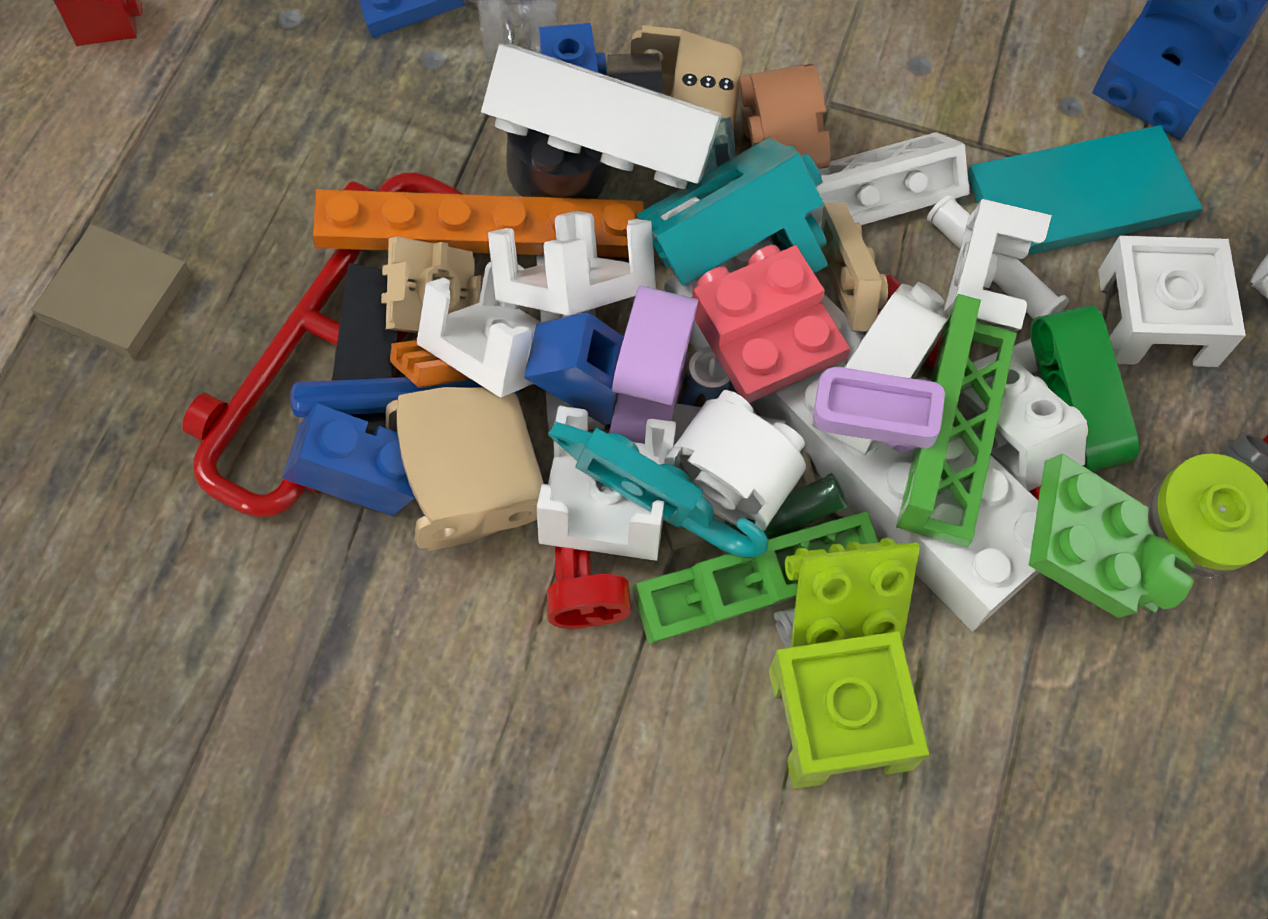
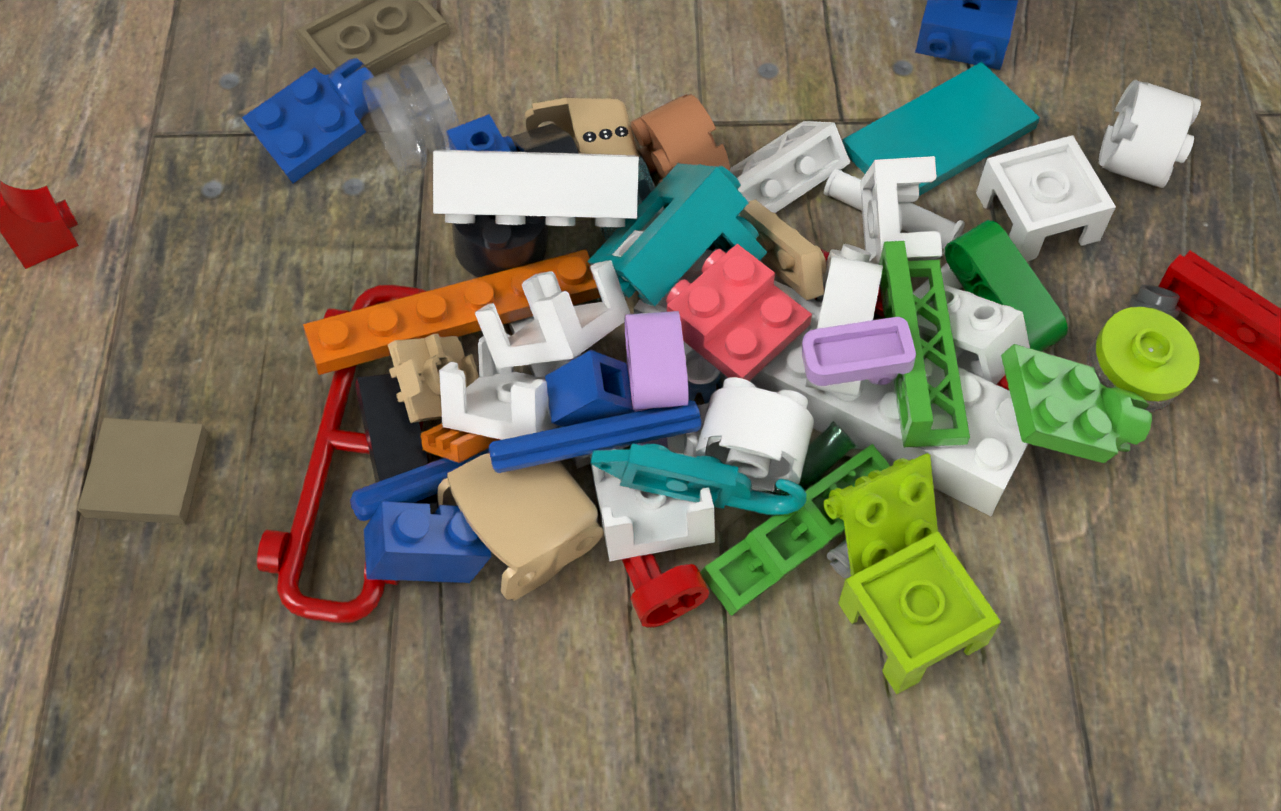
camera: 15 degrees left, 5 degrees down
(563, 406) = (592, 436): none -> blue axle

